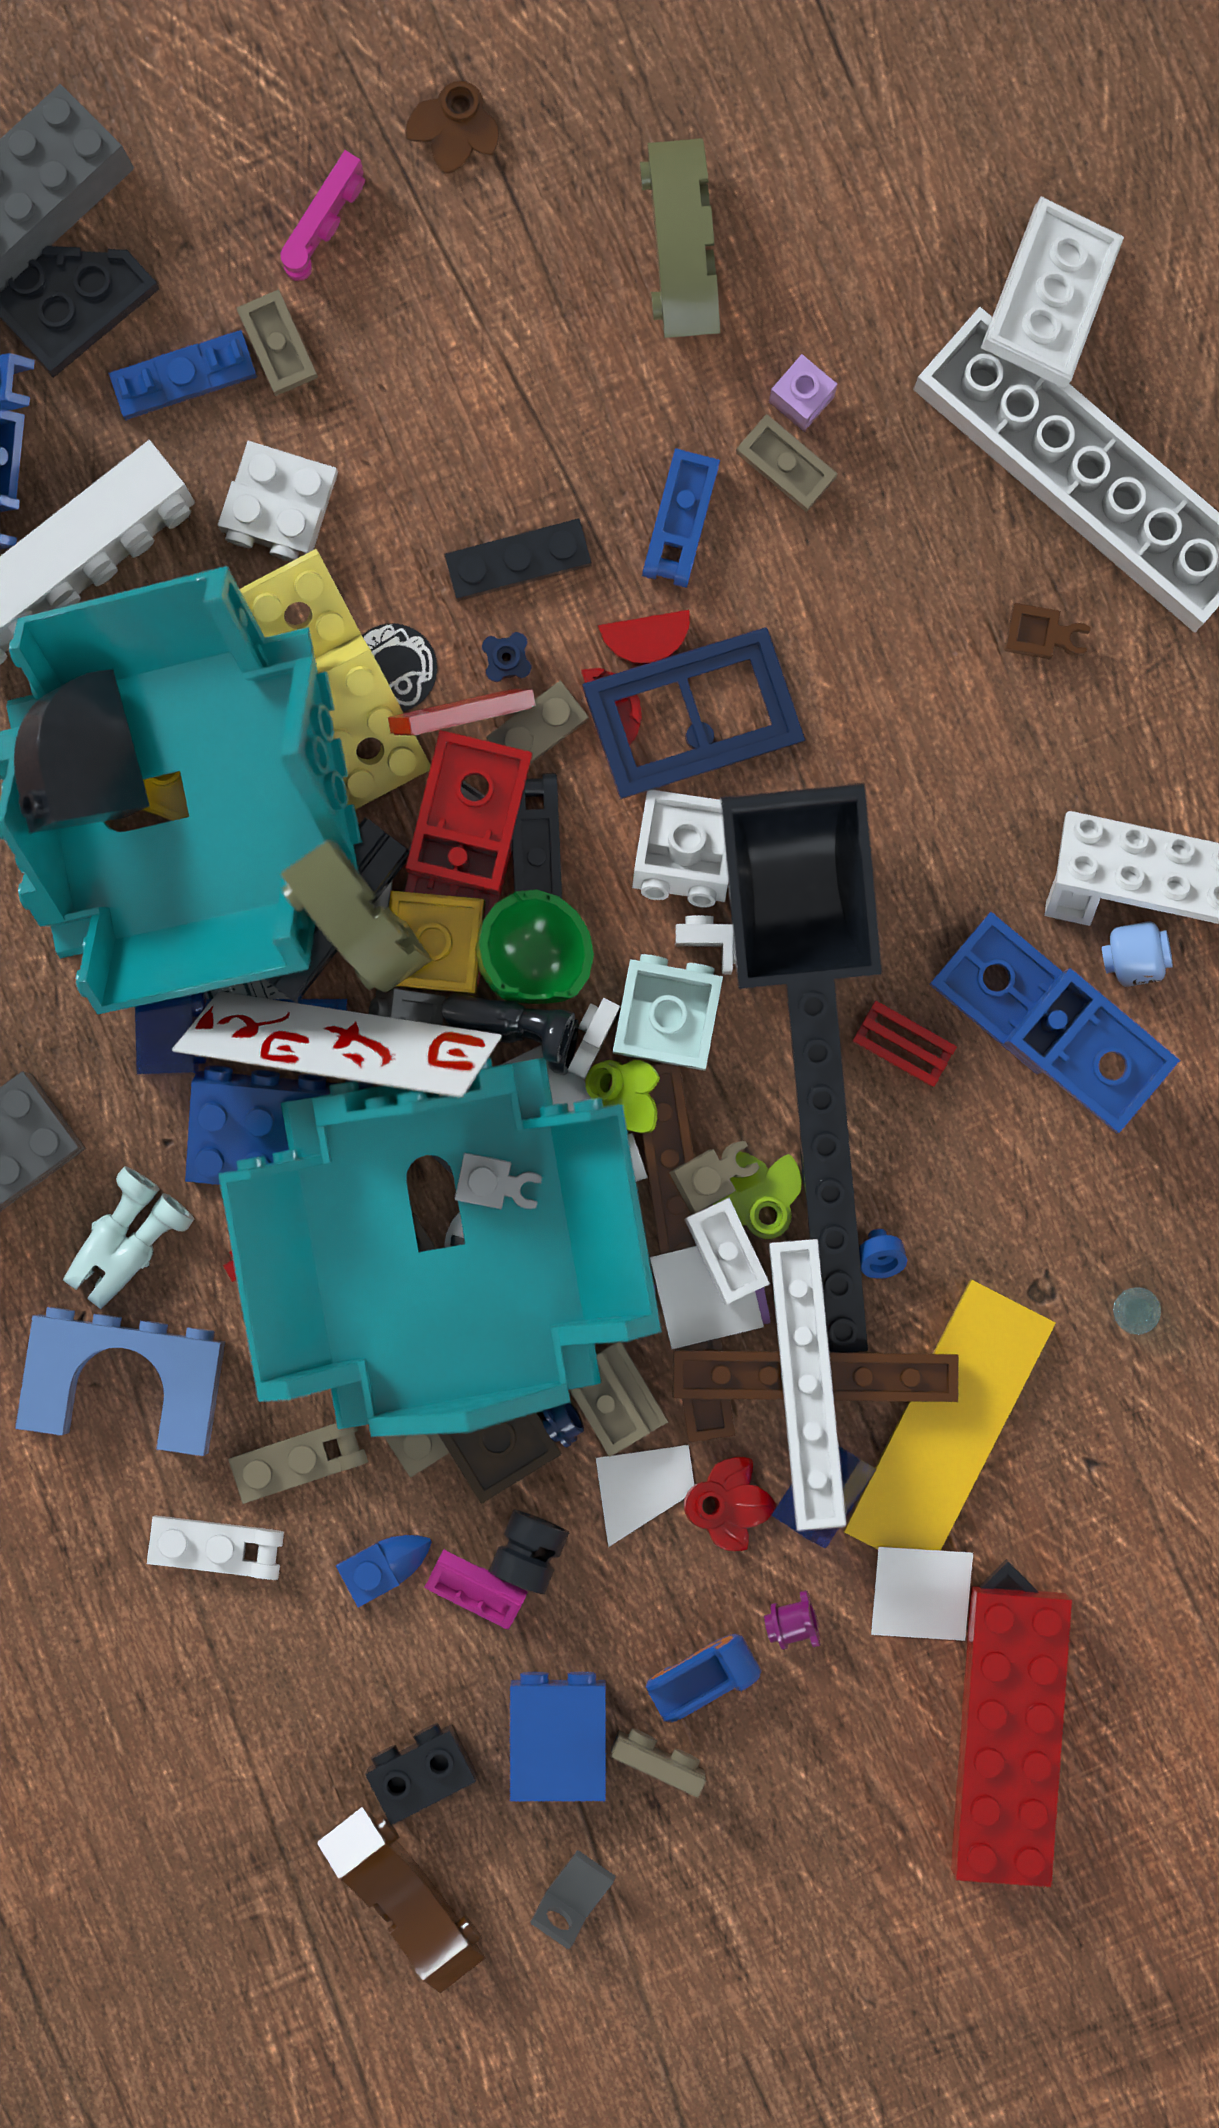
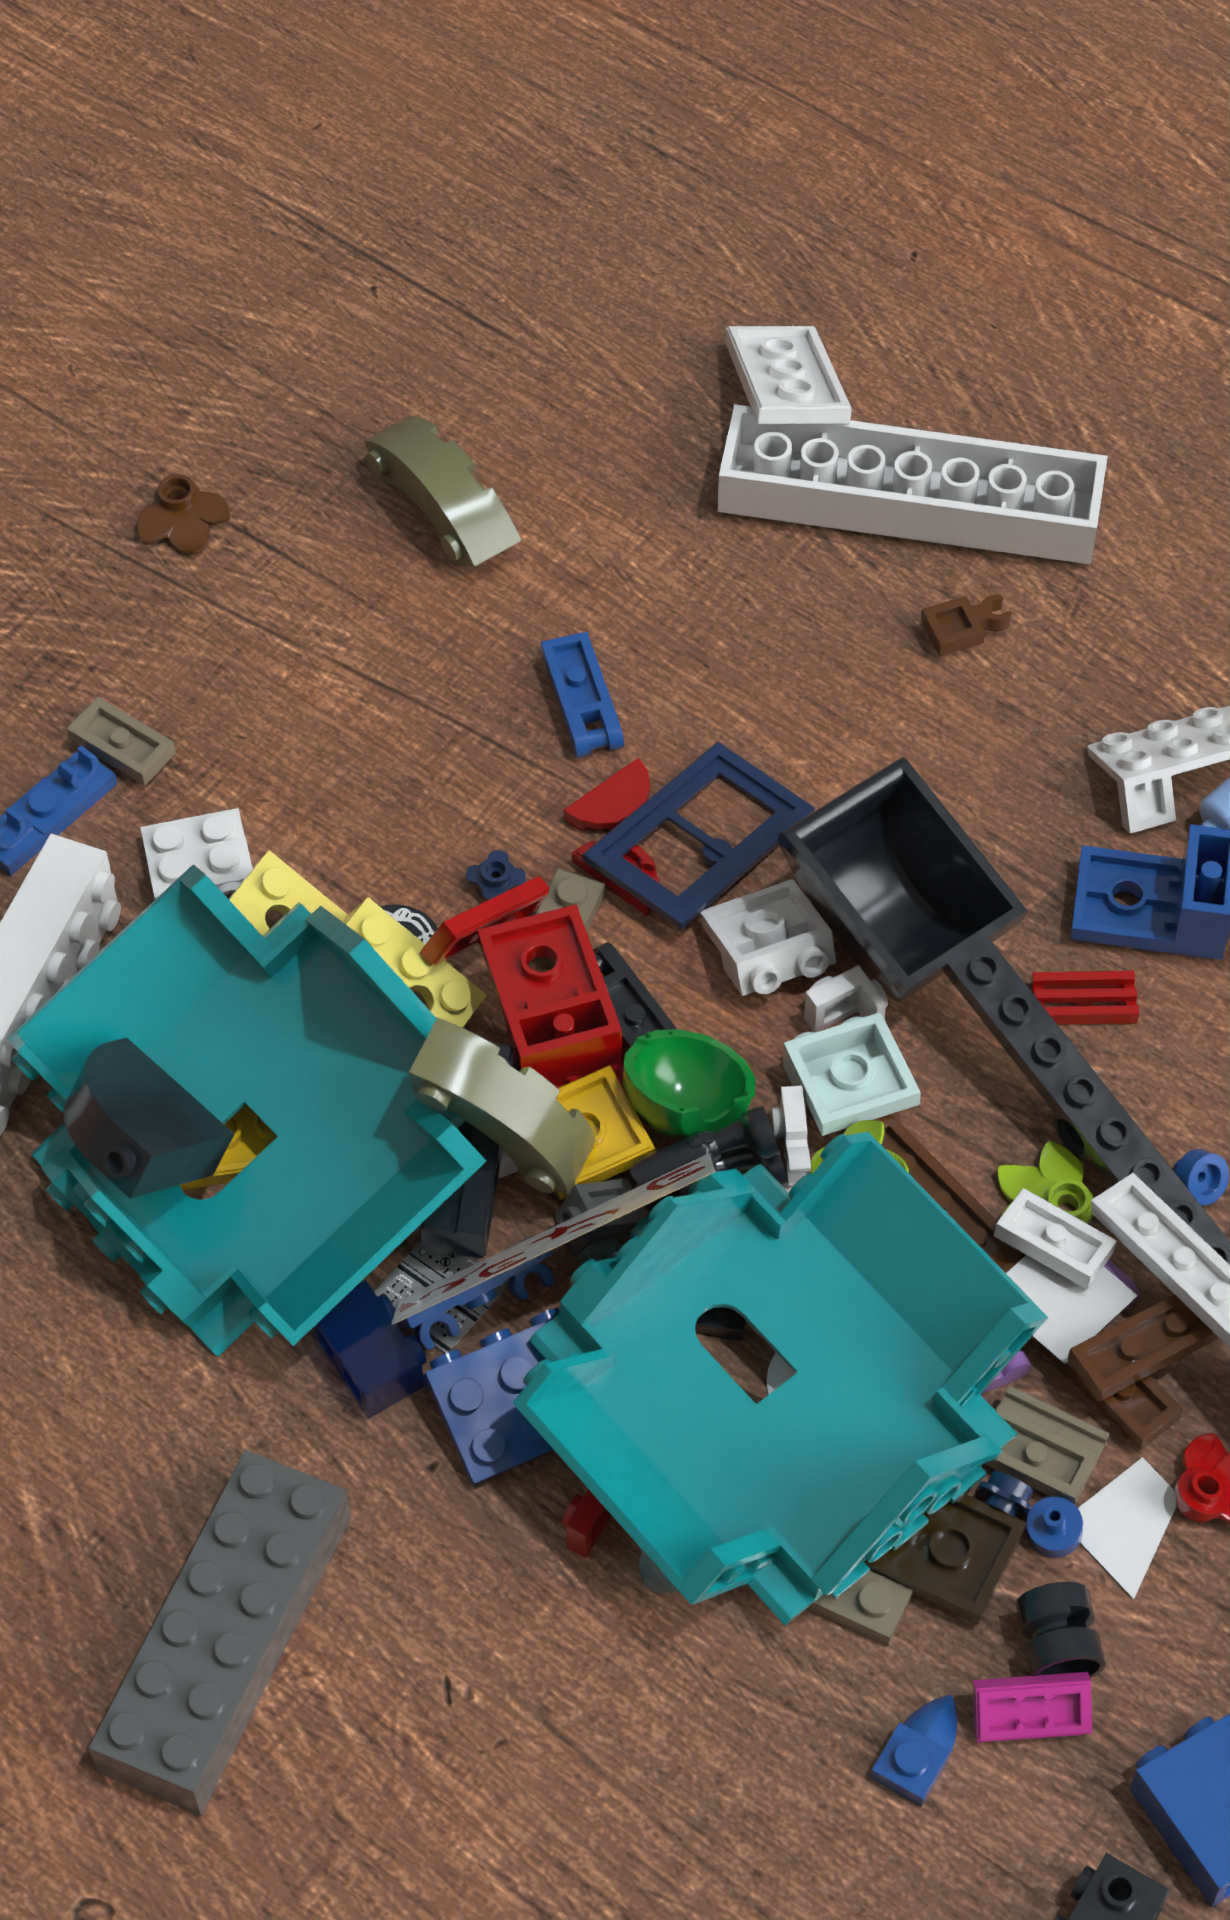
camera: 30 degrees left, 30 degrees down
(63, 1346) = (580, 1653): medium blue arch -> none
(122, 1255) = (449, 1588): light aqua piece -> none
(213, 1547) = (730, 1830): white plate -> none
(294, 1462) = (760, 1693): dark tan plate -> none
(321, 216) = (104, 628): dark pink plate -> none
(488, 1180) = (785, 1295): light grey plate -> none
(518, 559) = (454, 801): black plate -> none
(596, 1463) = (1054, 1527): none -> blue tile
(708, 1178) = (990, 1189): dark tan plate -> none
(786, 463) = (646, 610): dark tan plate -> none
(802, 392) = (624, 550): lavender brick -> none

